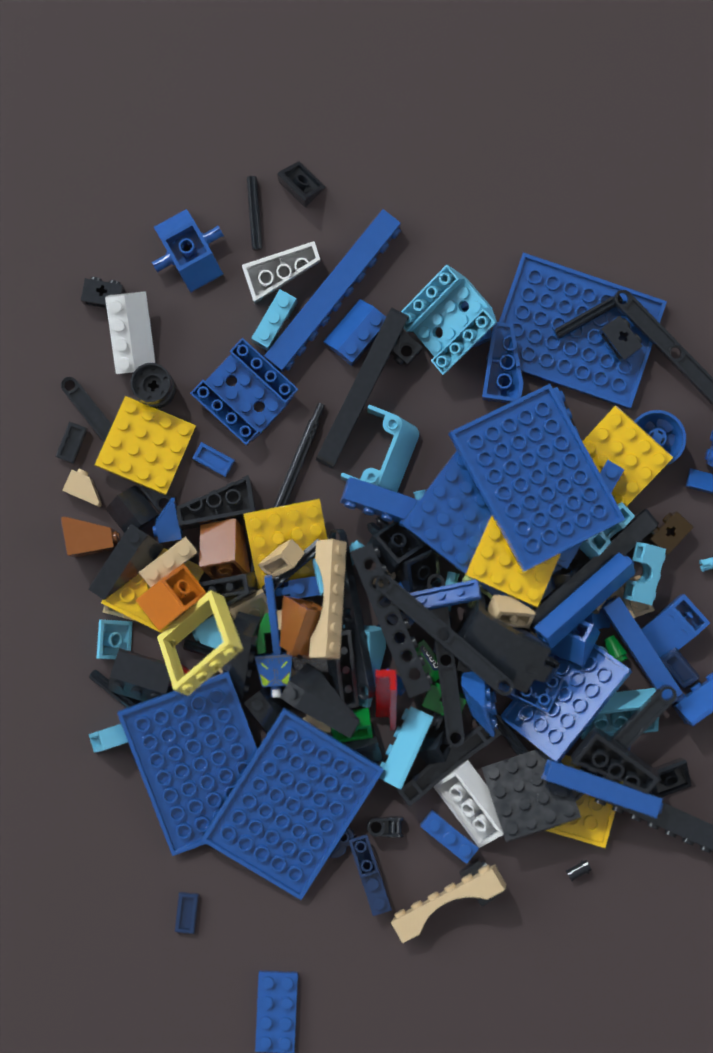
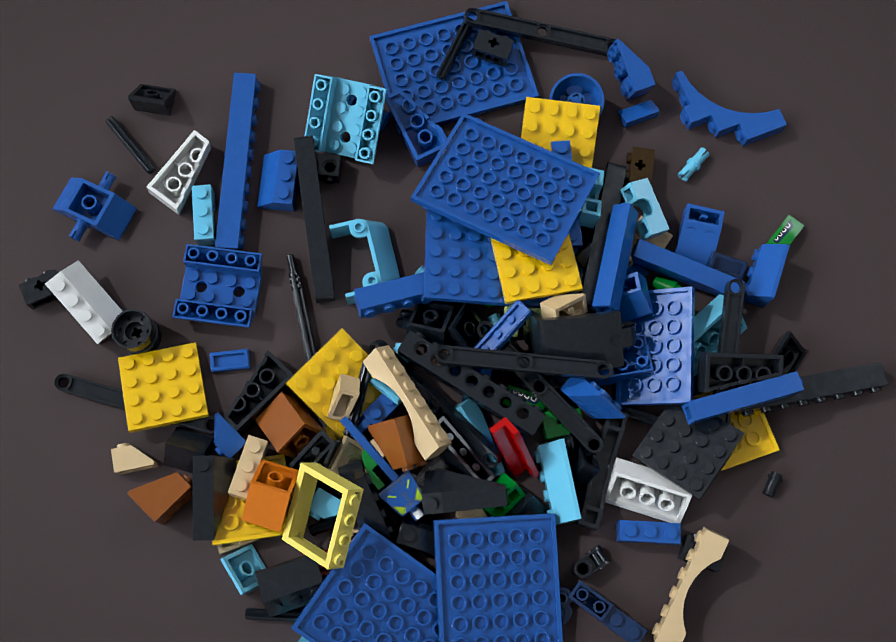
camera: 40 degrees left, 10 degrees down
(71, 442) = (96, 428): black plate -> none

